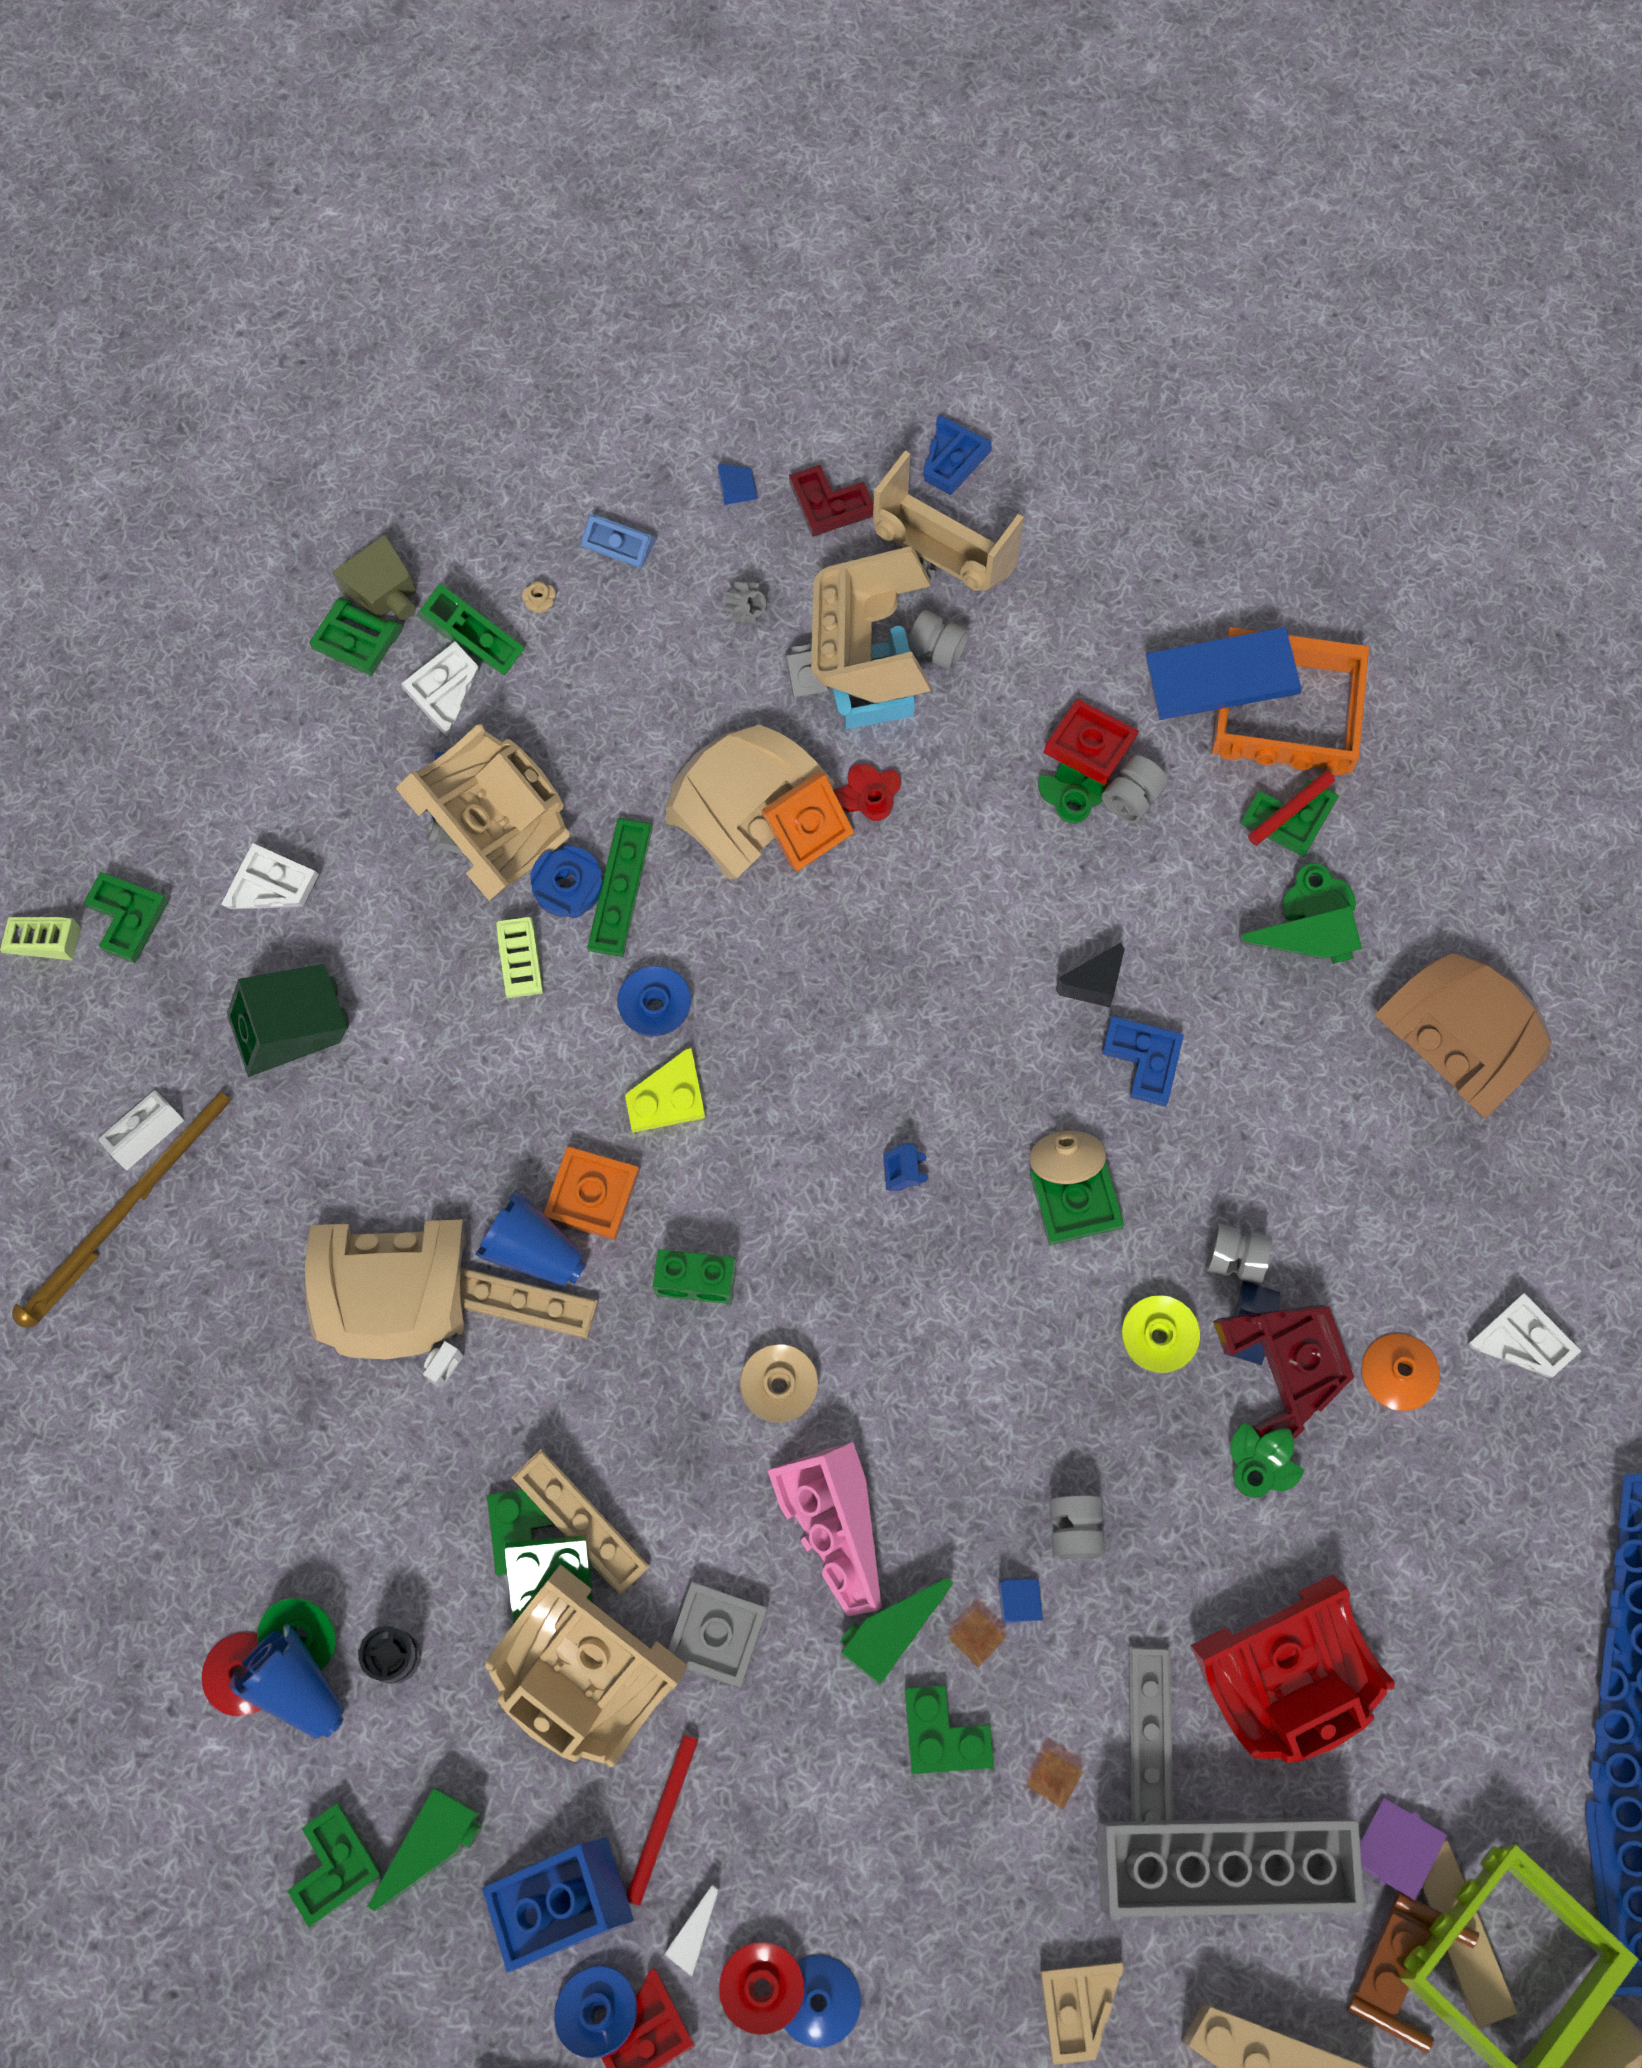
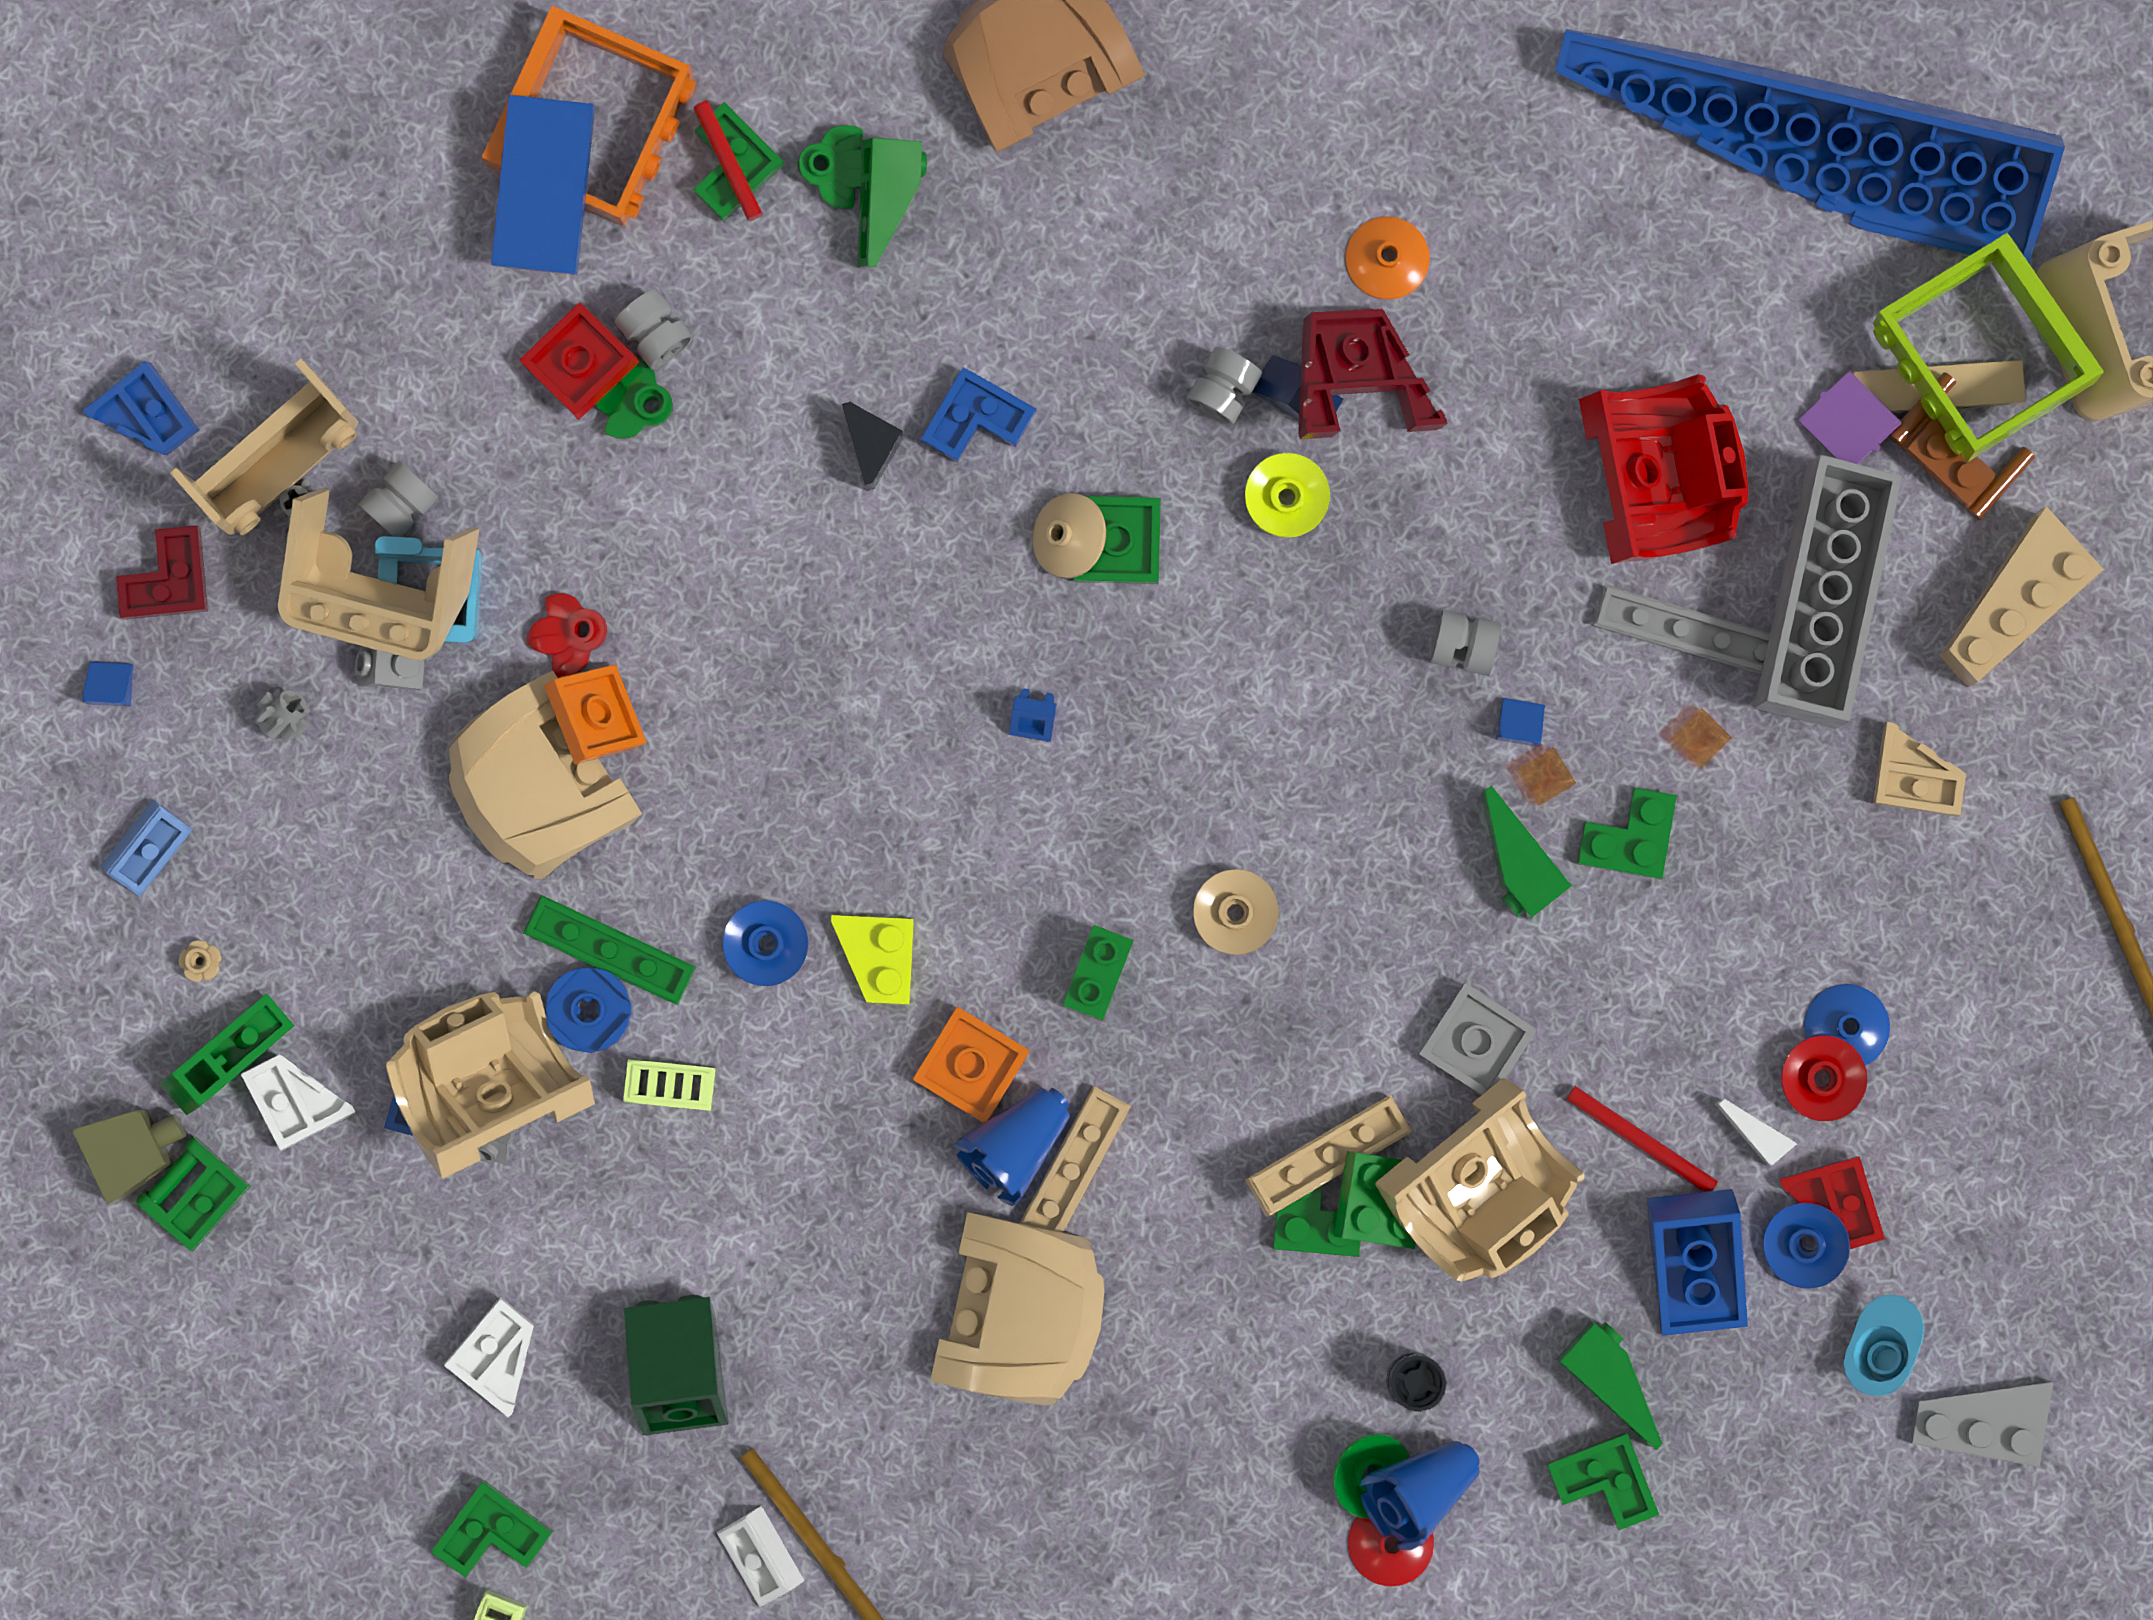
camera: 80 degrees left, 15 degrees up
(441, 1364) = (1120, 1268): white plate -> none
(833, 1508) = (1379, 888): bright pink wedge -> none
(1267, 1455) = (1442, 426): green plate -> none
(1526, 1339) = (1390, 117): white wing -> none

